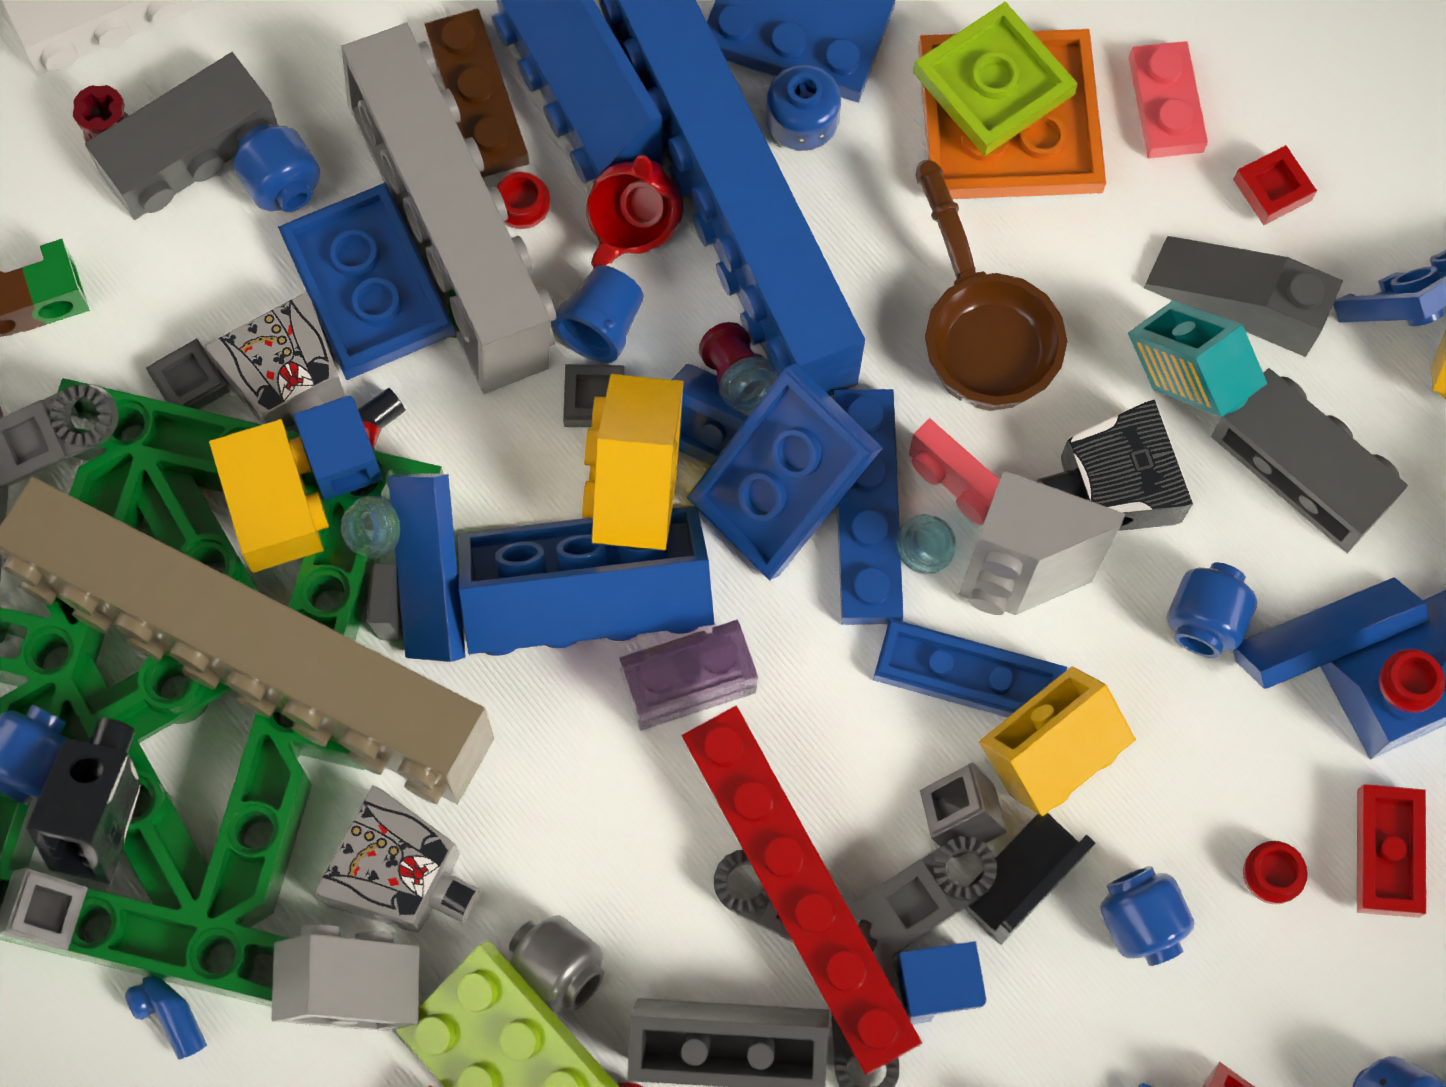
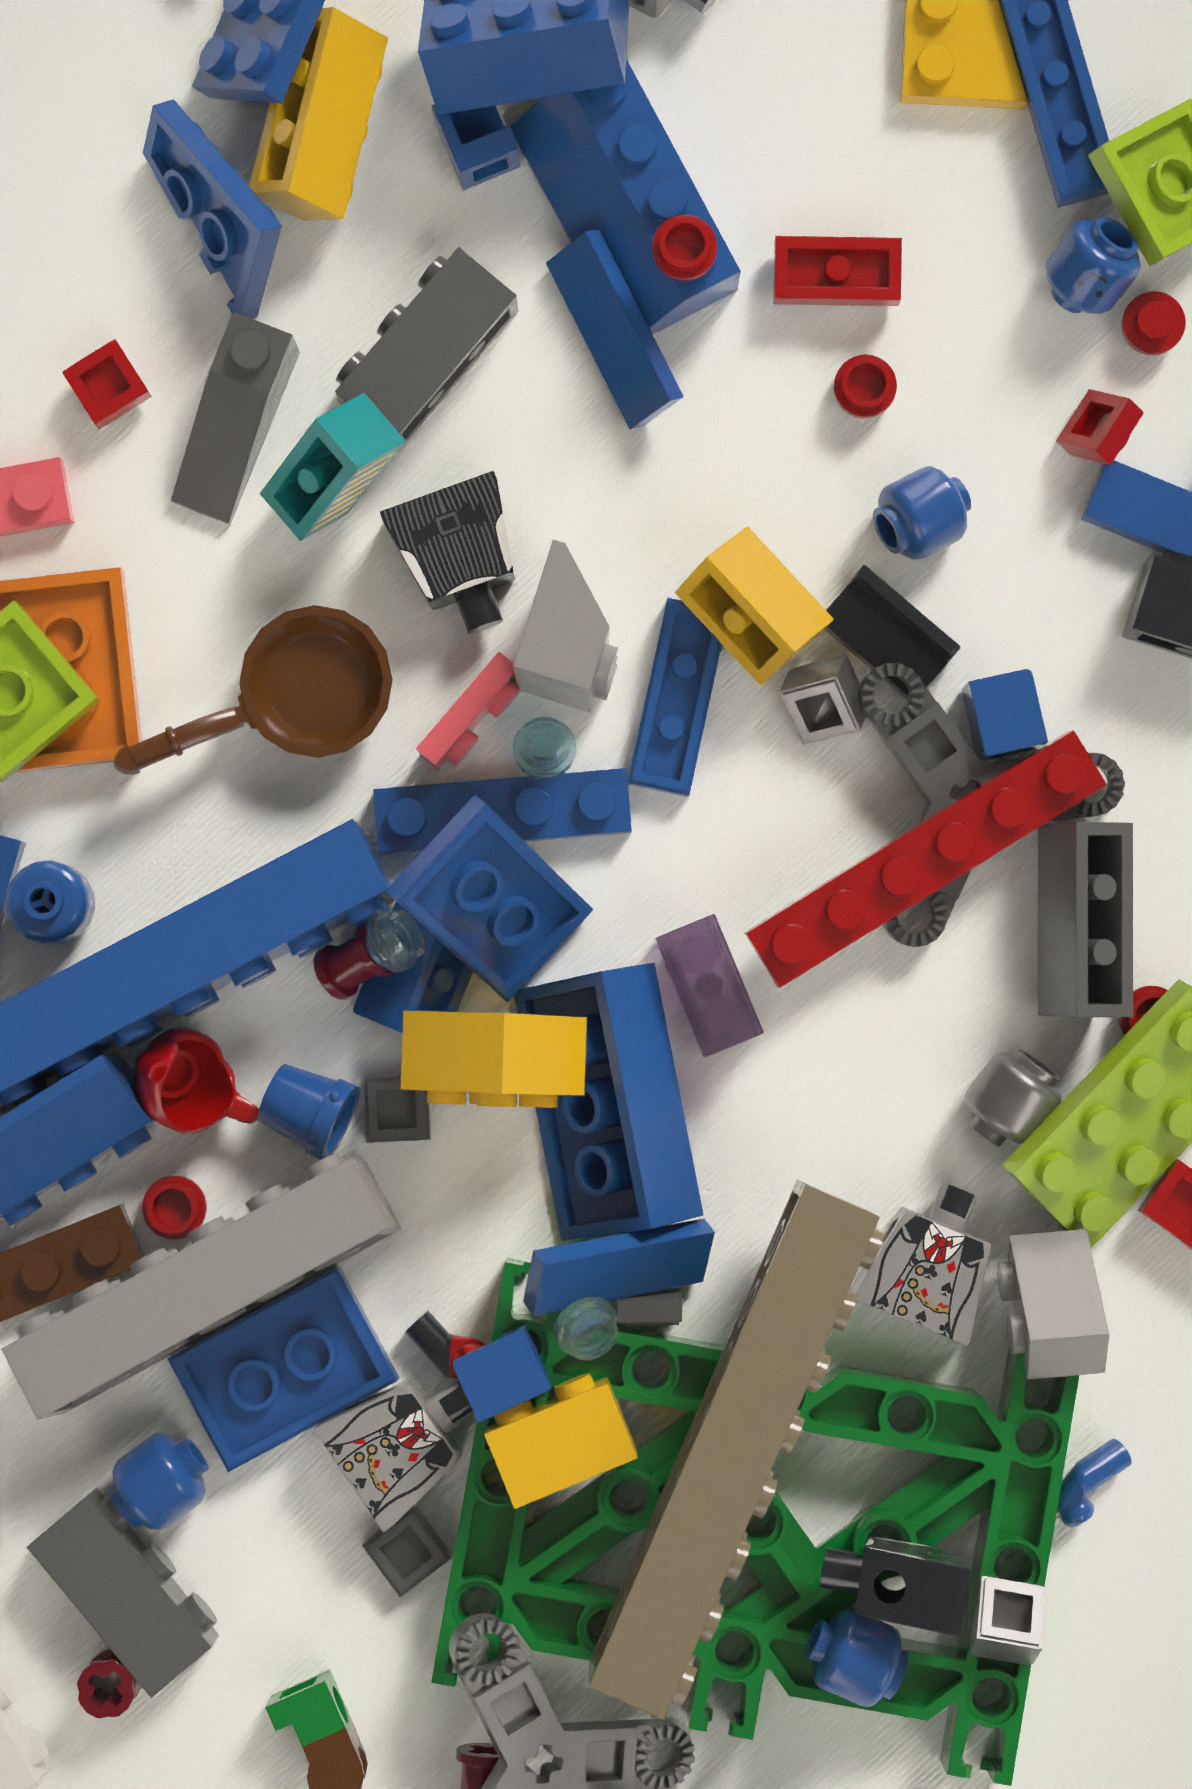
camera: 90 degrees left, 15 degrees up
(1212, 610) = (601, 450): blue head -> none

